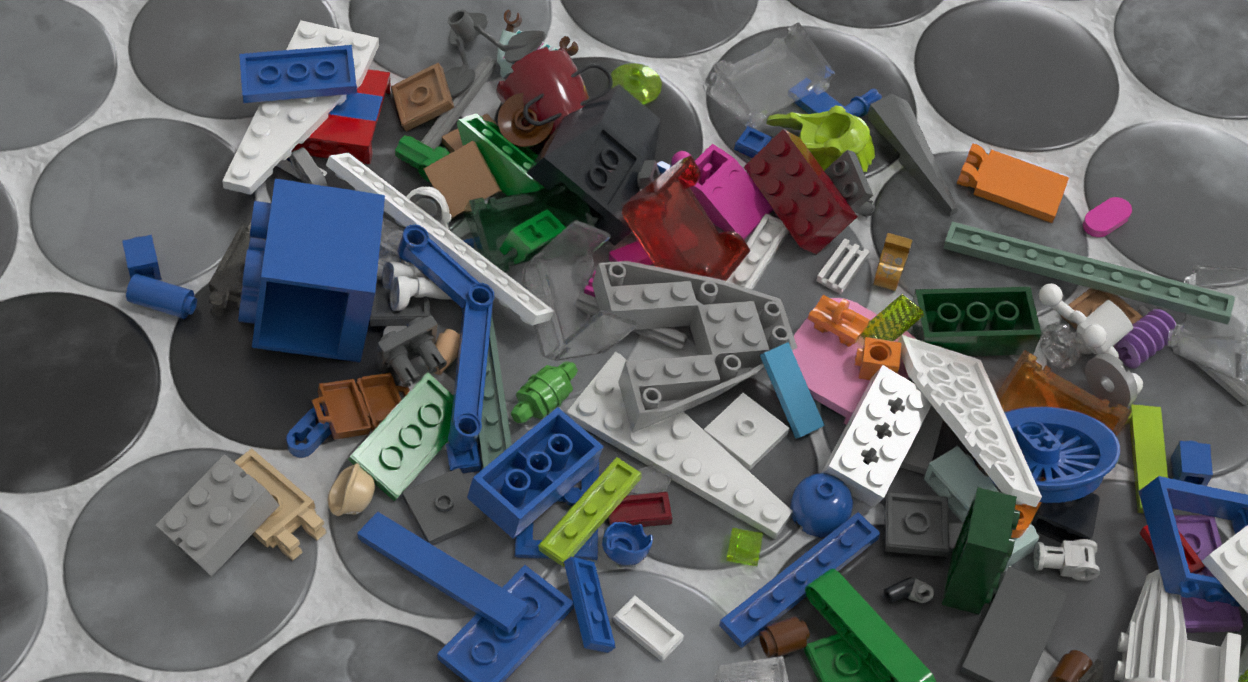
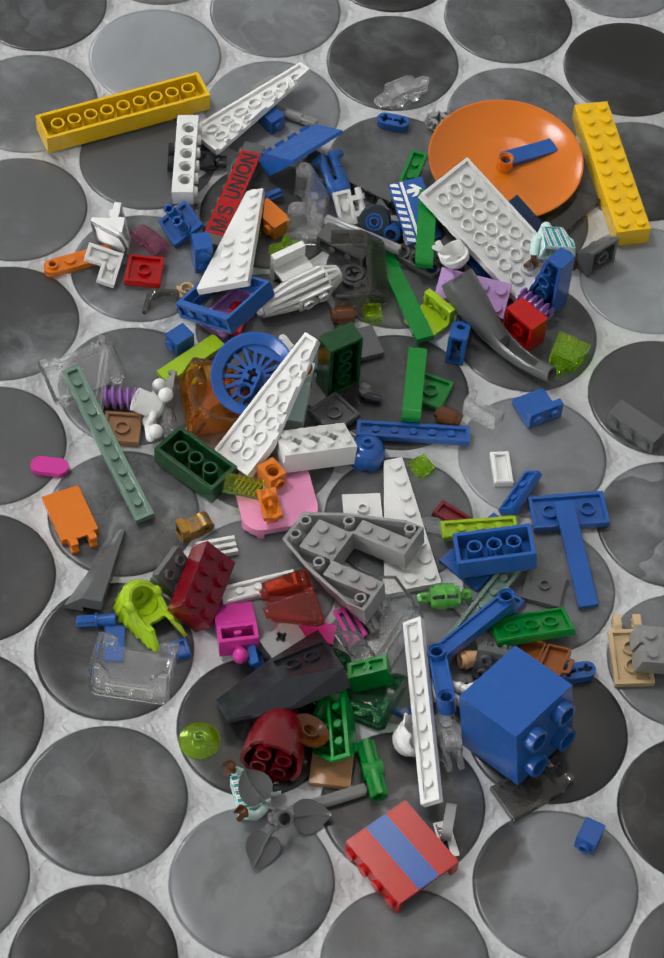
camera: 135 degrees left, 0 degrees up
(161, 296) = (595, 803): blue brick -> none
(285, 123) = (402, 864): white wing -> none
(297, 73) = (413, 859): blue plate -> none
(351, 491) = (587, 621): tan helmet -> none
(422, 97) = (337, 818): medium nougat tile -> none
(462, 178) = (373, 736): medium nougat tile -> none
(610, 83) = (268, 710): black piece -> none
(626, 543) = (477, 500): blue hair -> none
(648, 173) = (280, 644): dark grey plate -> none
(792, 390) = (326, 499): dark azure tile -> none

